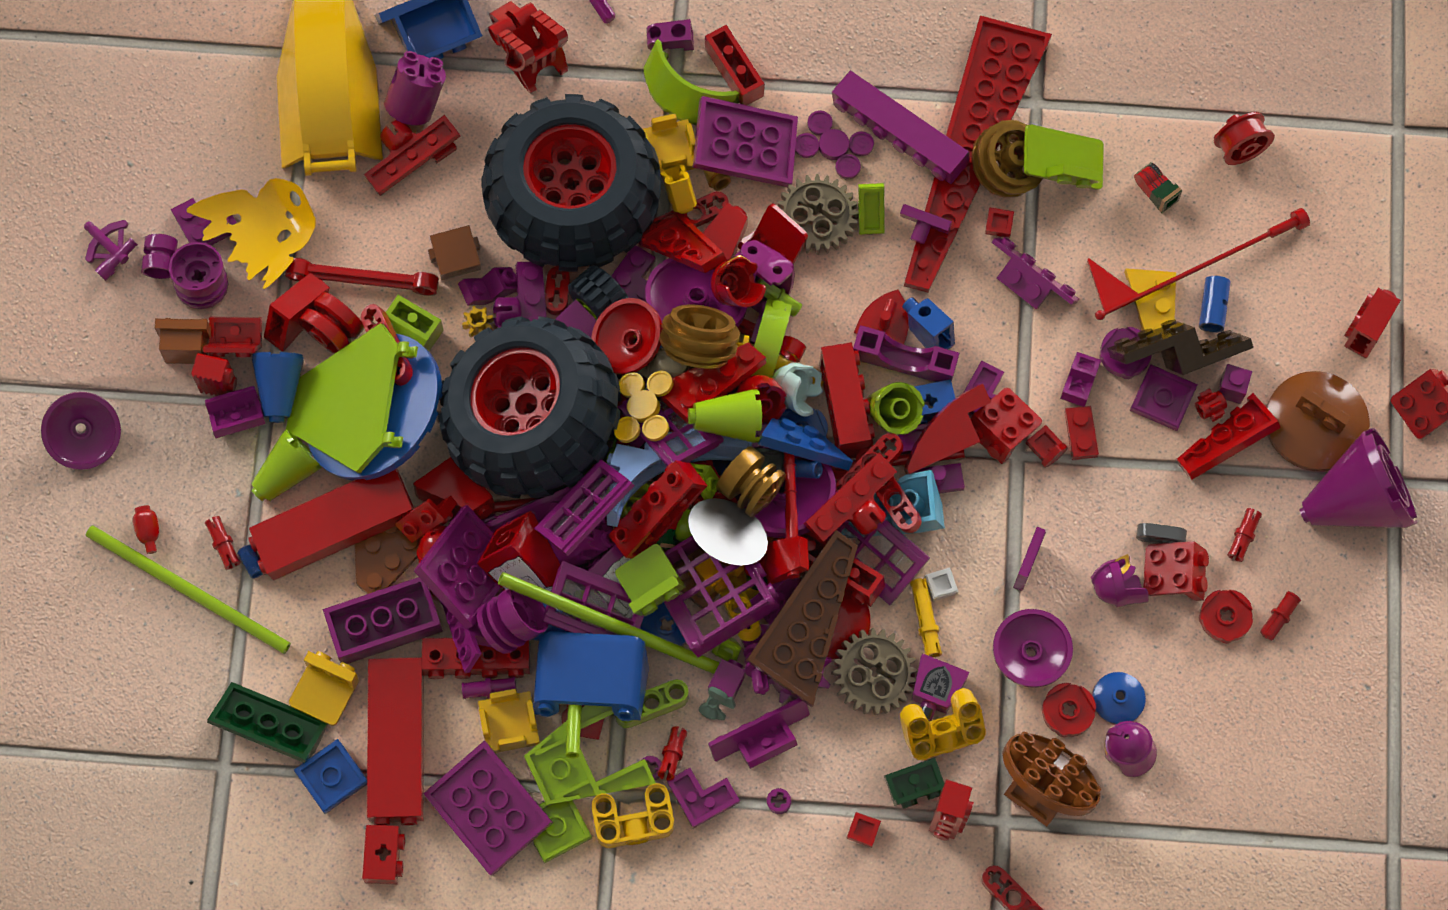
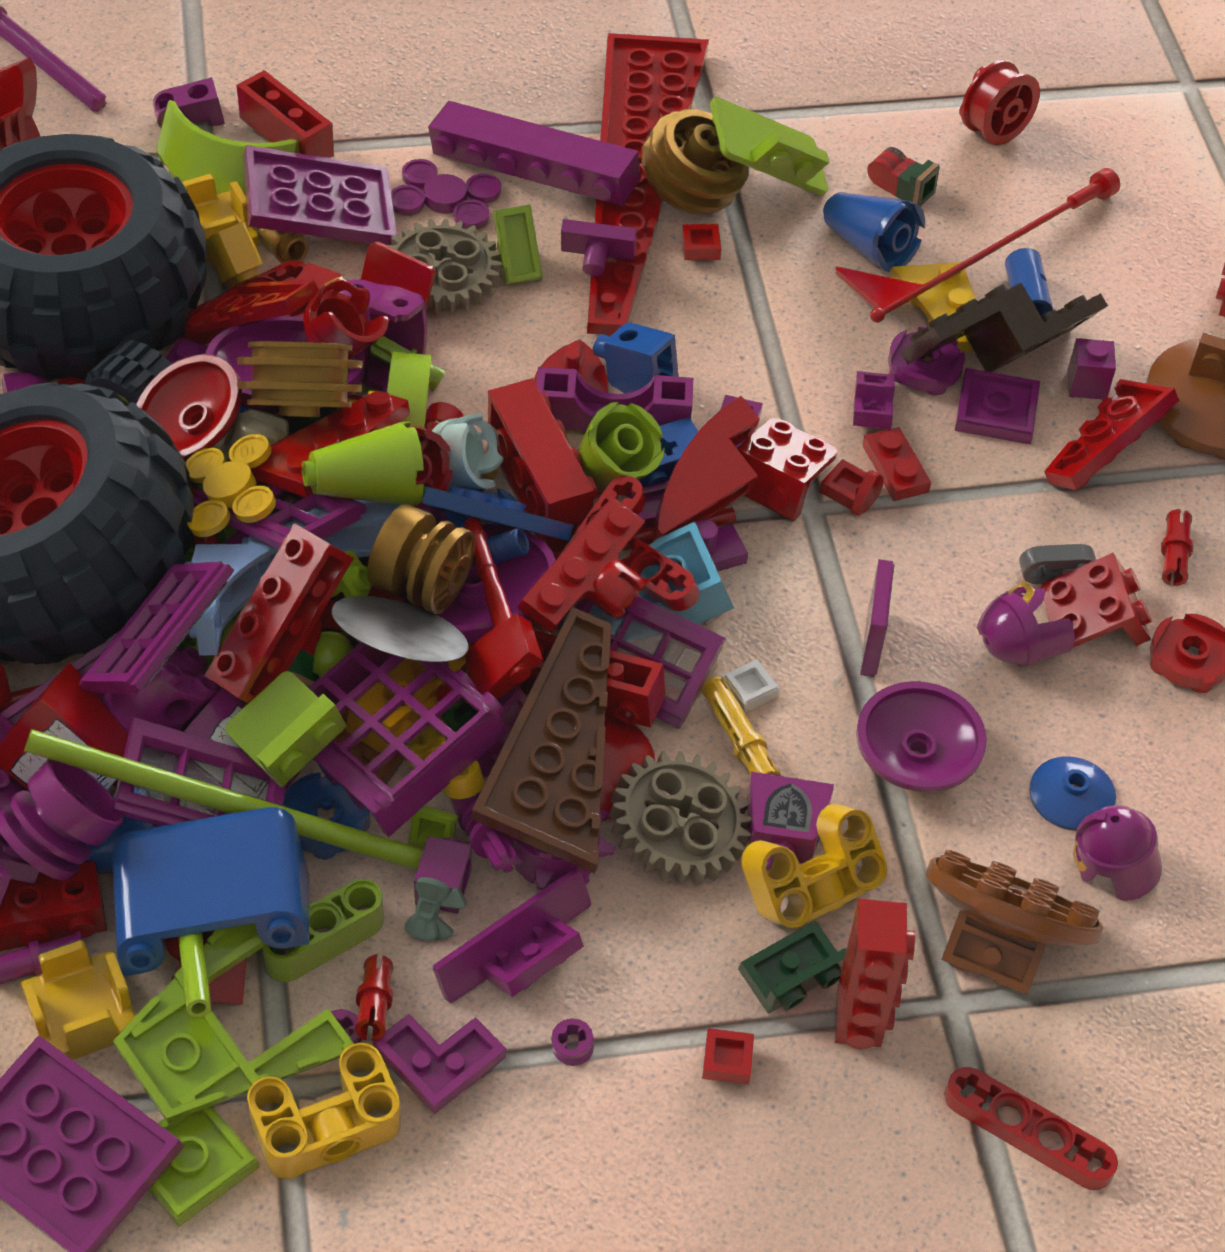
camera: 15 degrees left, 20 degrees down
(1028, 279) = (762, 298): magenta bracket -> none
(1064, 724) = (997, 839): red plate -> none
(1121, 235) = (877, 226): none -> blue cone
(1211, 405) = (1069, 397): red gear -> none

